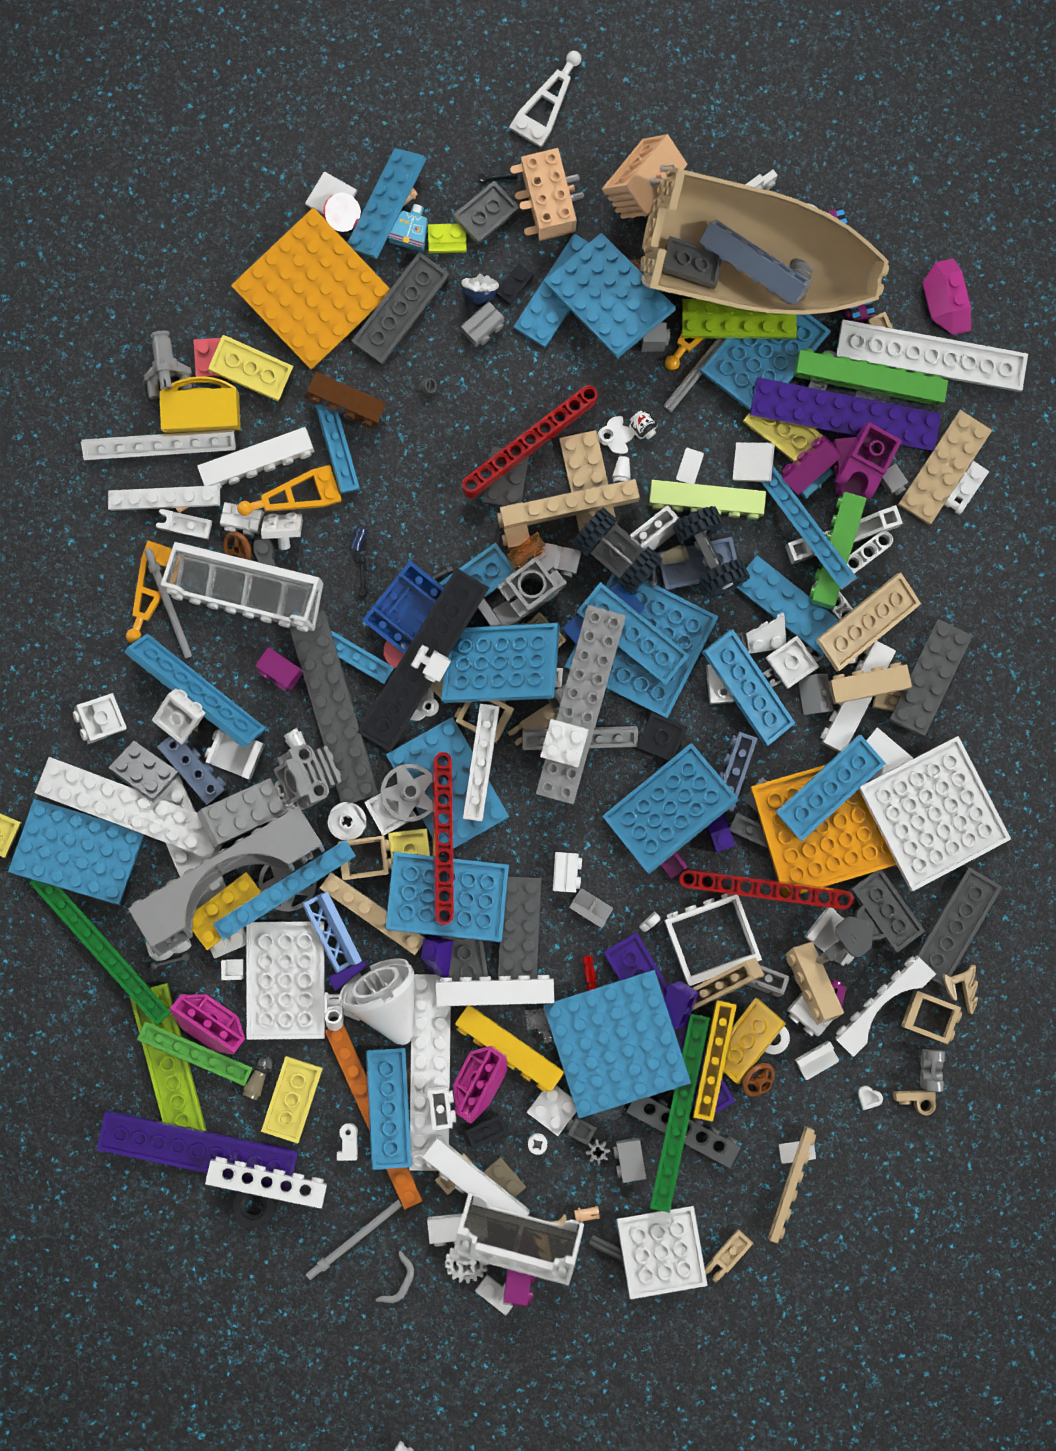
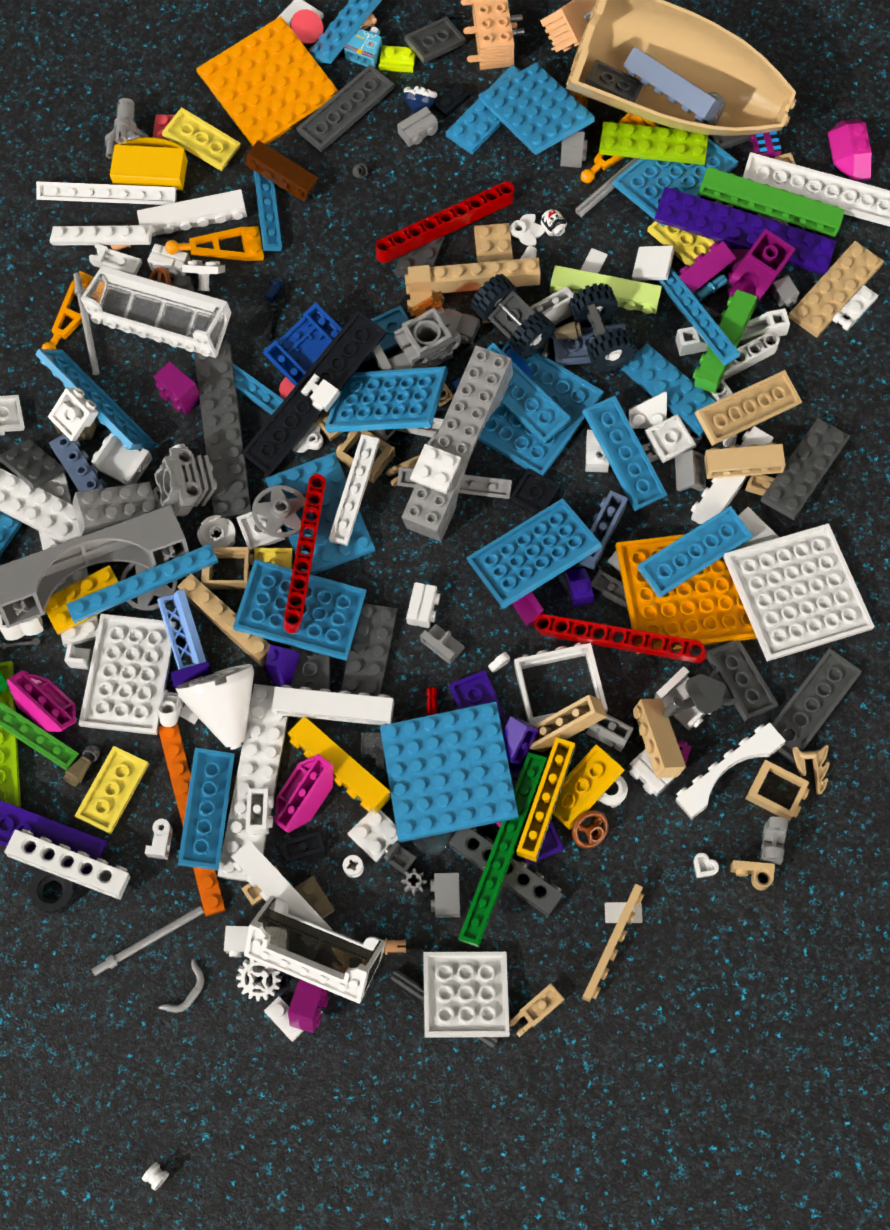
camera: 15 degrees right, 15 degrees down
(817, 1060) = (654, 820): white panel -> none

